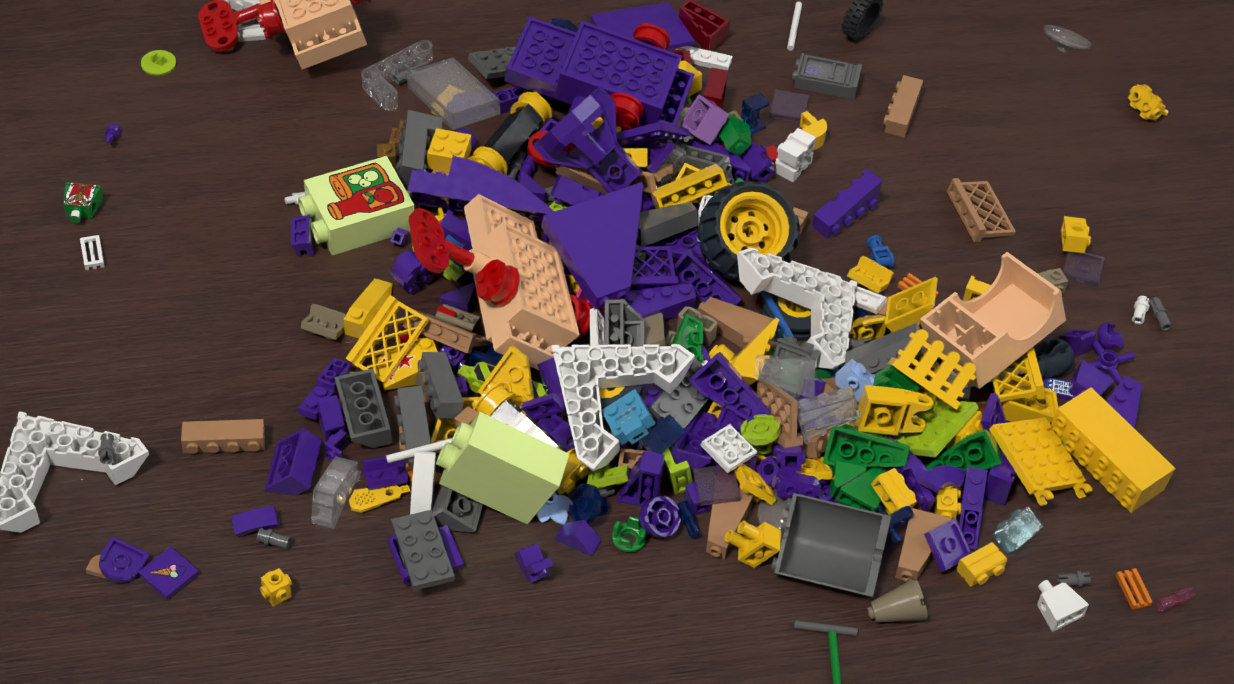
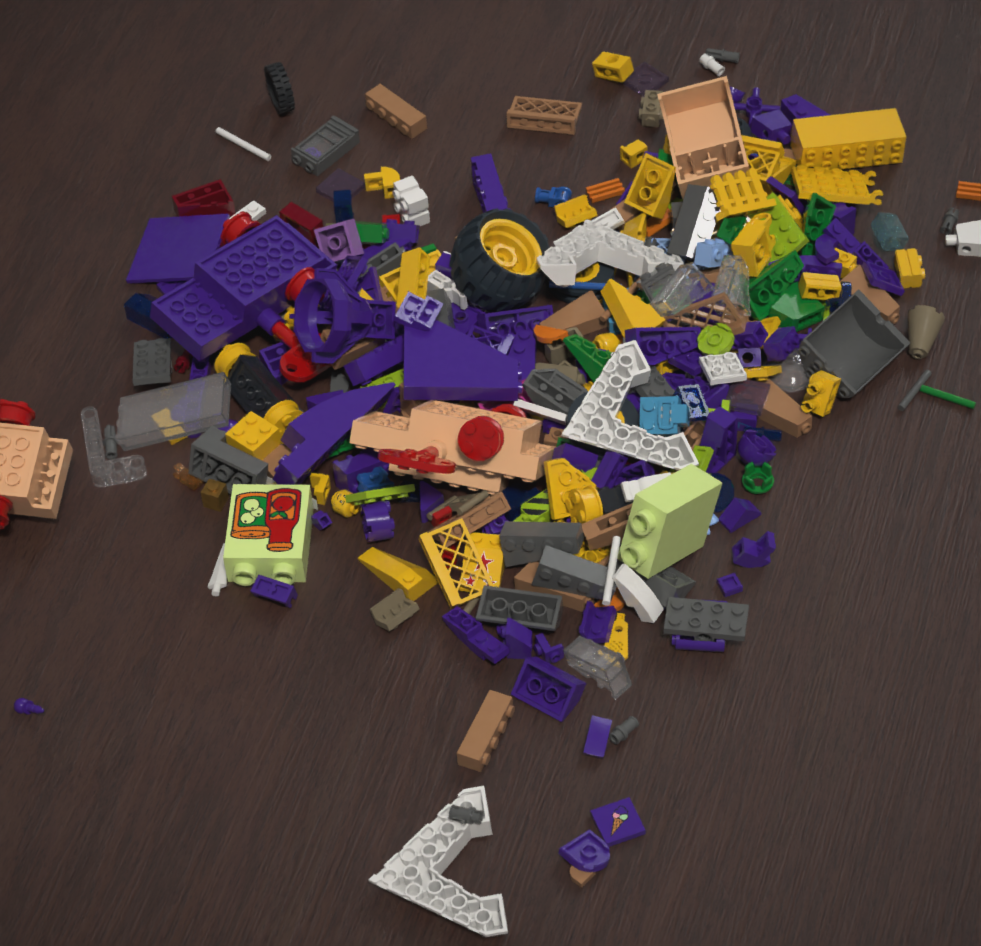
camera: 55 degrees left, 0 degrees up
(81, 200) = (109, 758): torso -> none
(93, 263) = (181, 774): white tile -> none
(276, 586) = (681, 742): yellow brick -> none
(489, 560) = (729, 585): none -> dark purple tile
(528, 166) = (296, 395): dark purple pin -> none
(637, 192) = (417, 312): none -> slope
(692, 304) = (547, 334): none -> orange tile

